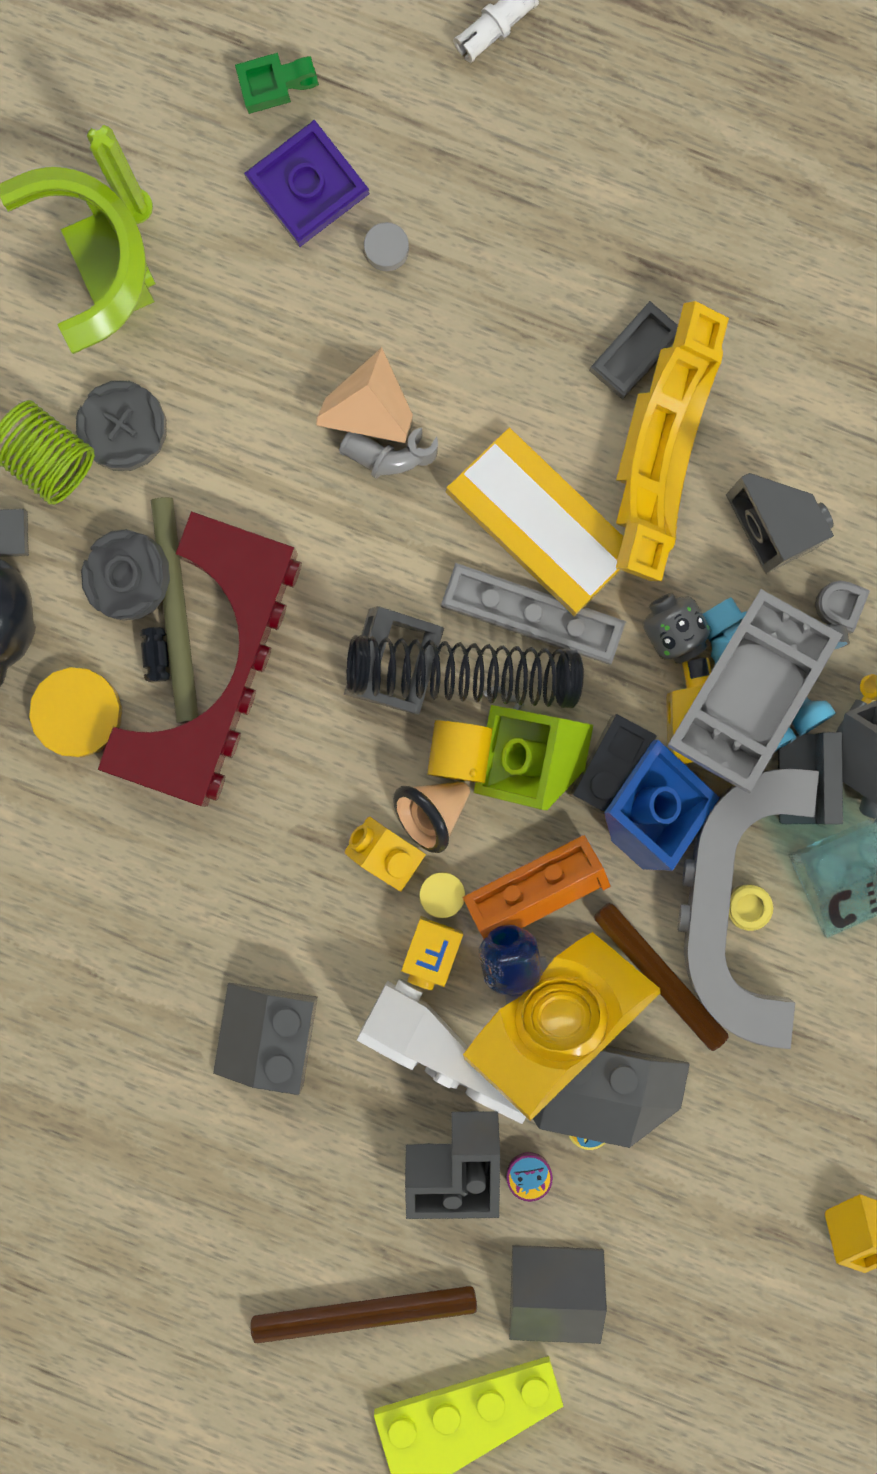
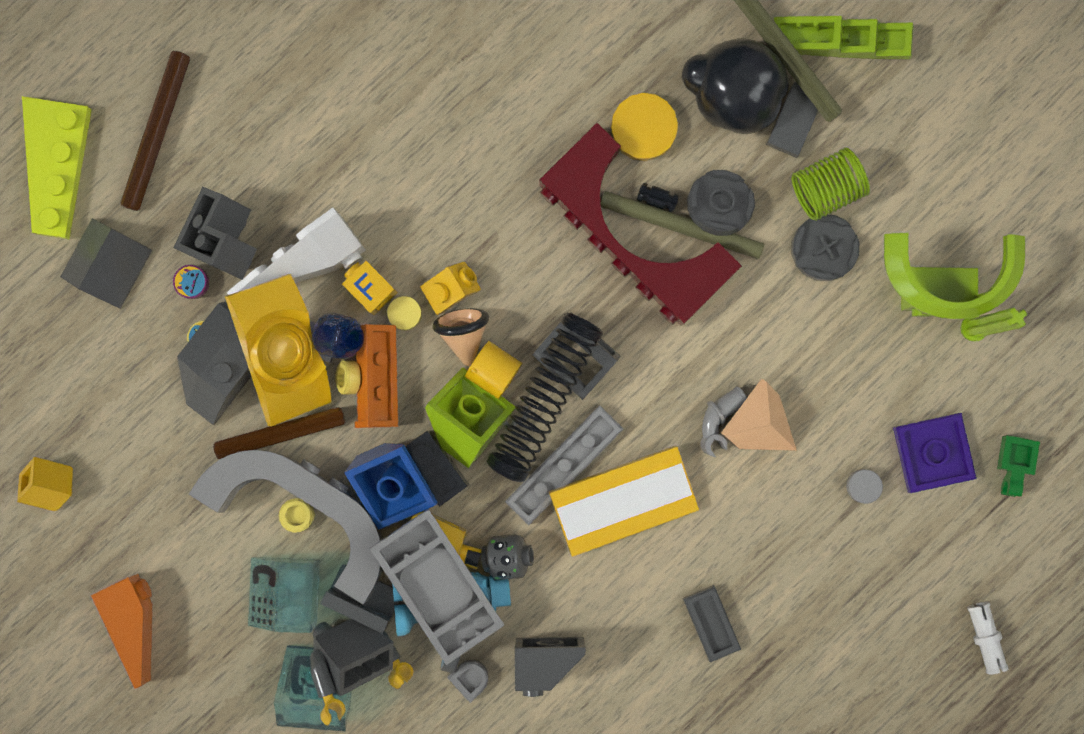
camera: 115 degrees right, 0 degrees up
(265, 1038) = (366, 151): dark grey slope -> none
(553, 925) = (348, 377): none -> light yellow tile
(663, 439) = (638, 609): yellow piece -> none

